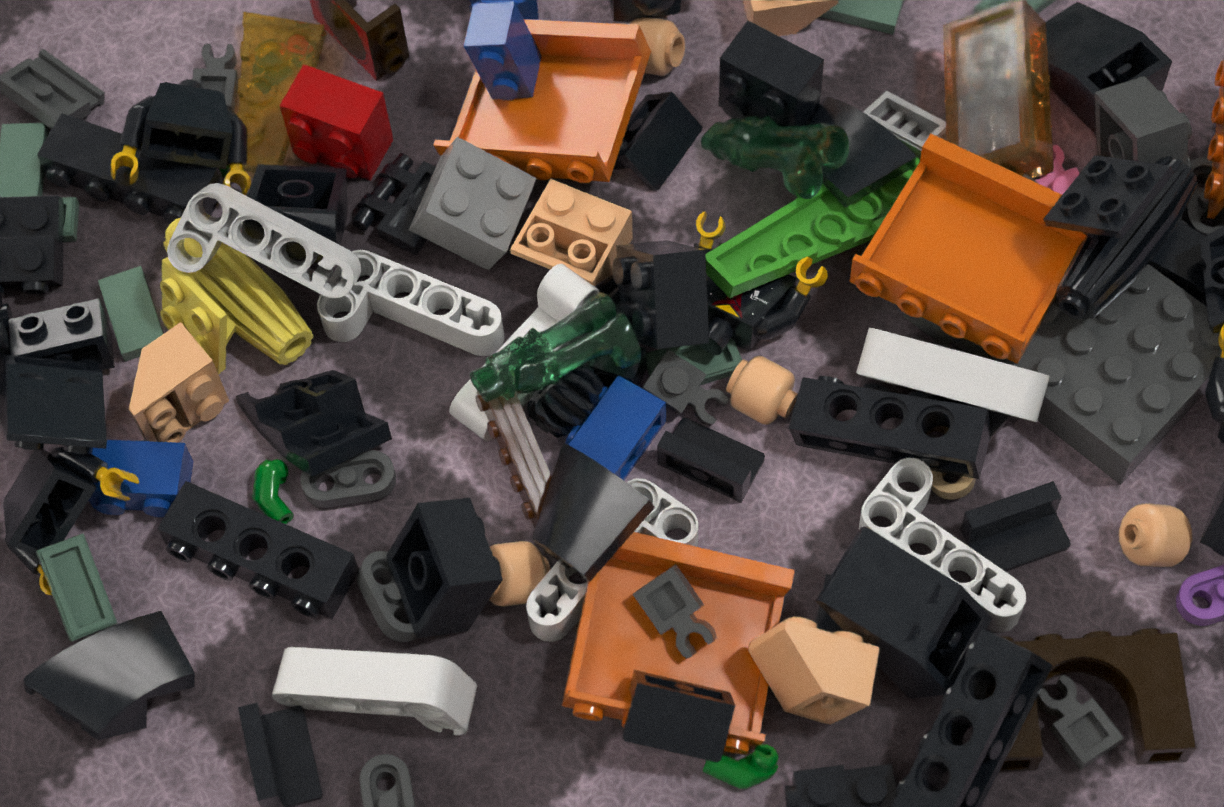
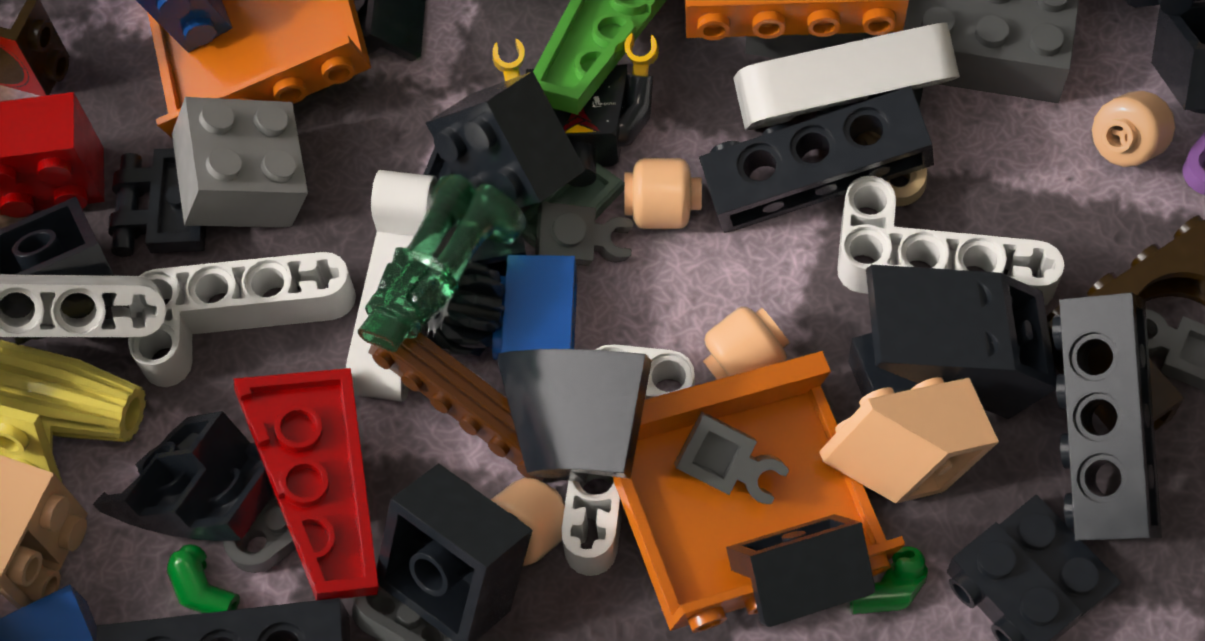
camera: 30 degrees left, 0 degrees up
(392, 450) = (315, 465): none -> red wing
(574, 231) = (364, 133): light nougat slope -> none
(710, 459) = (650, 292): black panel -> none
(750, 534) = (744, 343): none -> light nougat head
(1017, 528) = (997, 193): black panel -> none

